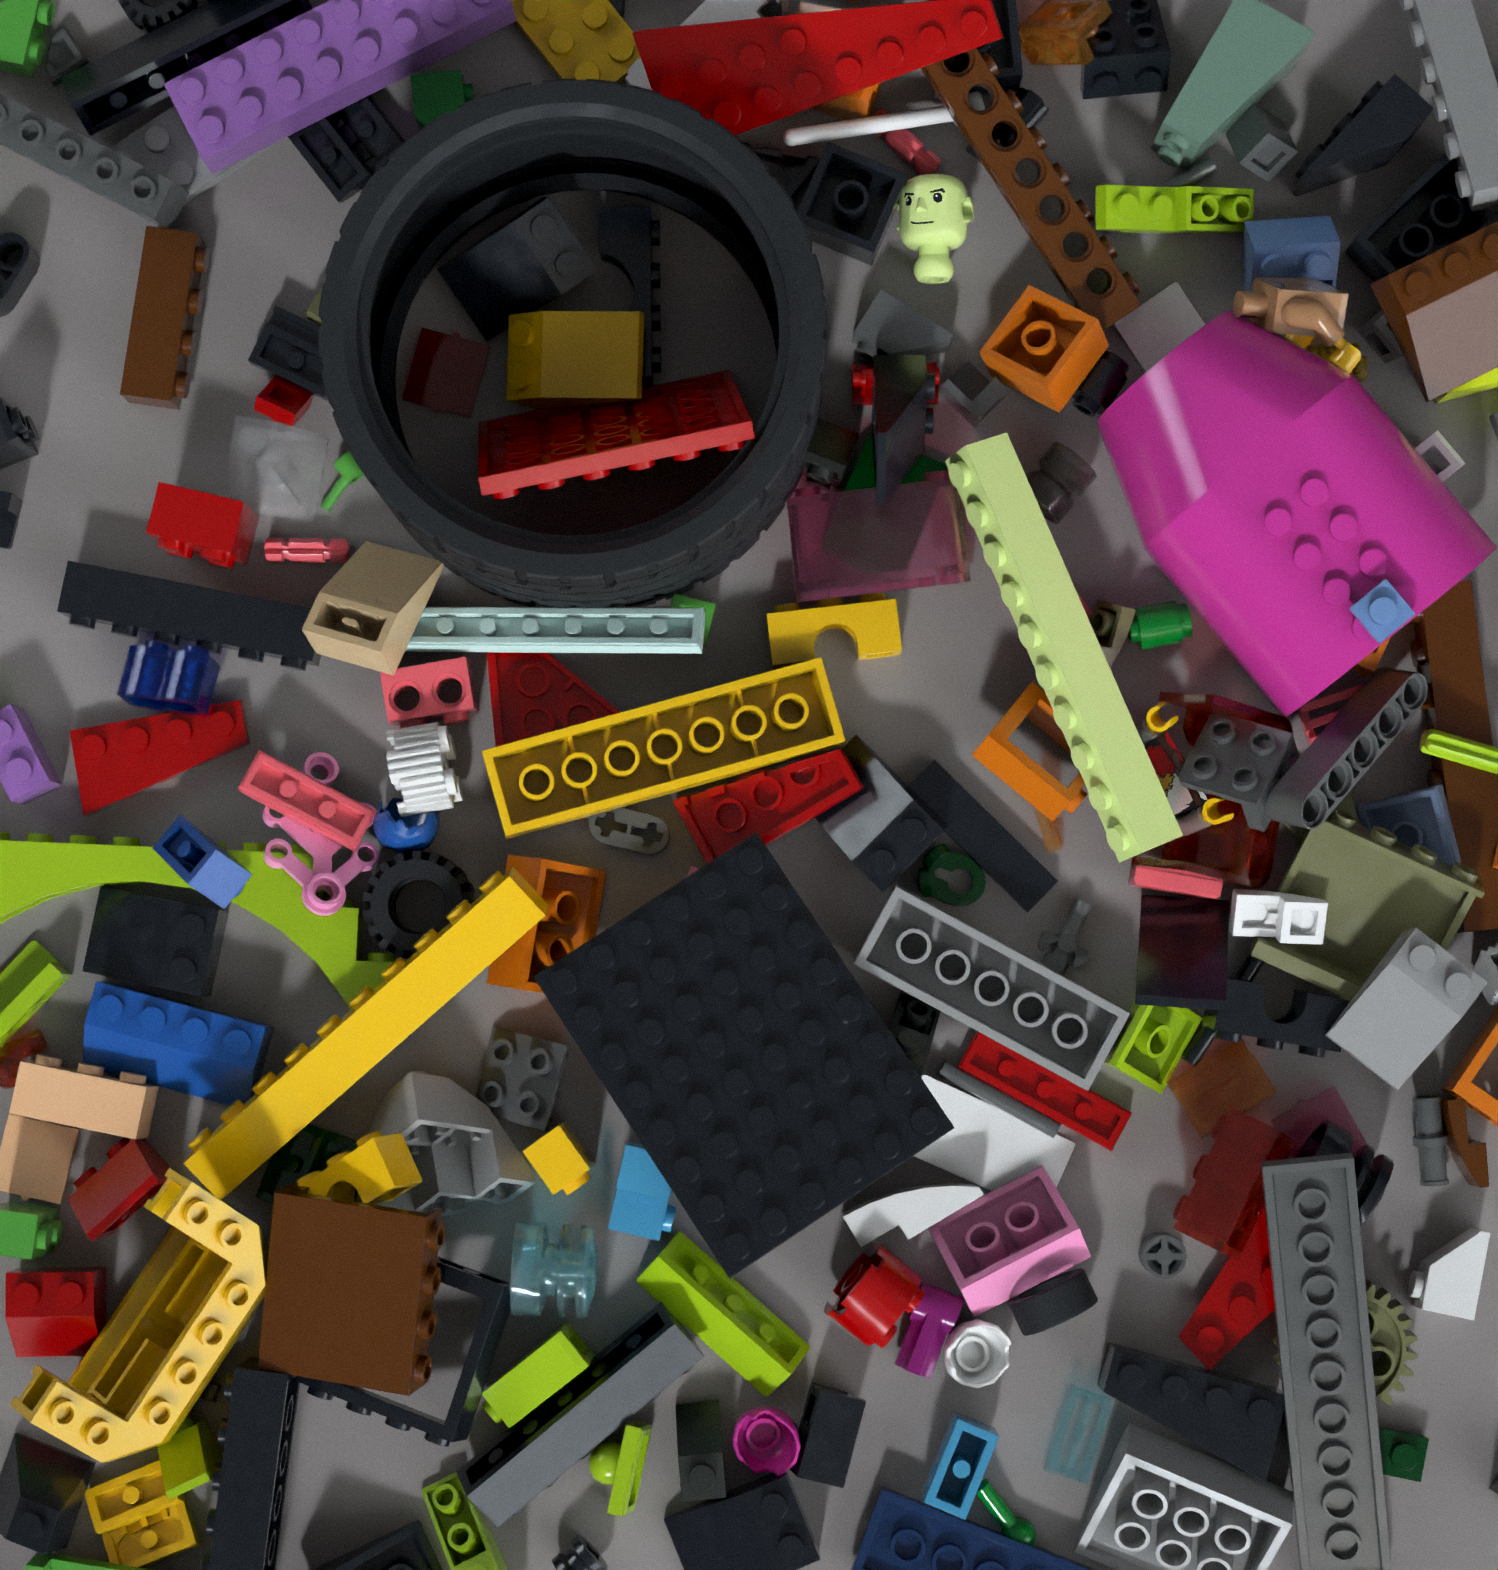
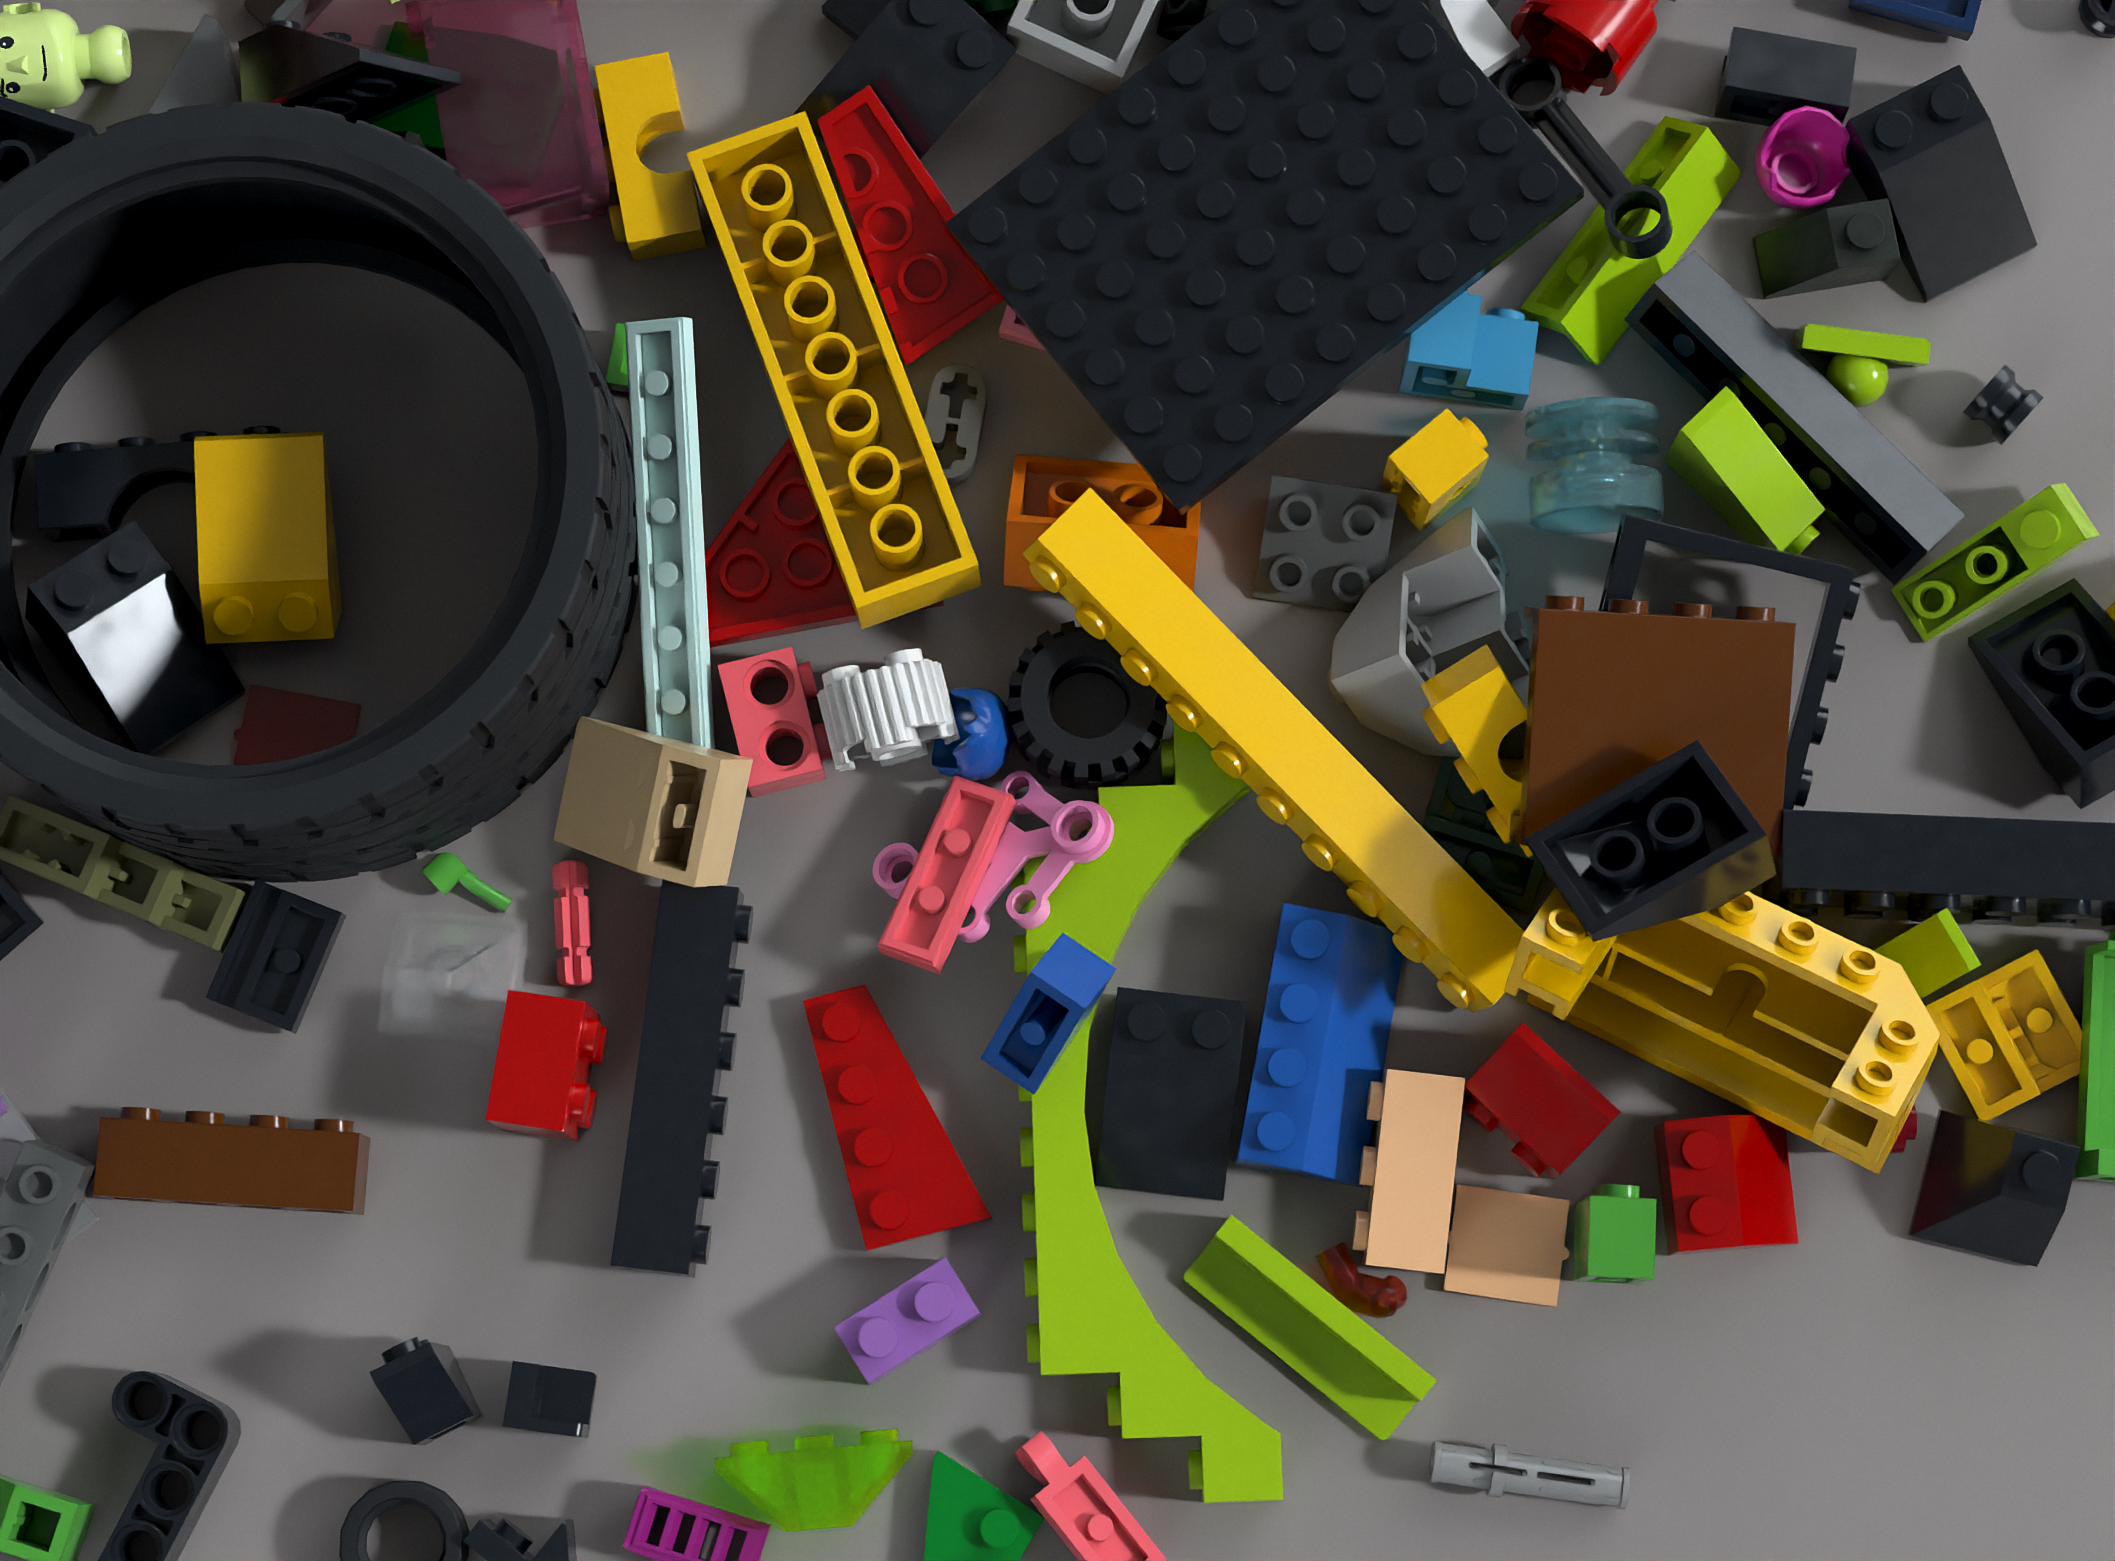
camera: 95 degrees left, 5 degrees down
(169, 678) = (779, 1101): clear blue brick -> none
(249, 1277) = (1655, 848): none -> black slope
(283, 401) = (351, 974): red plate -> none
(593, 438) = (397, 495): red plate -> none
(777, 1285) = (1588, 158): none -> black piece

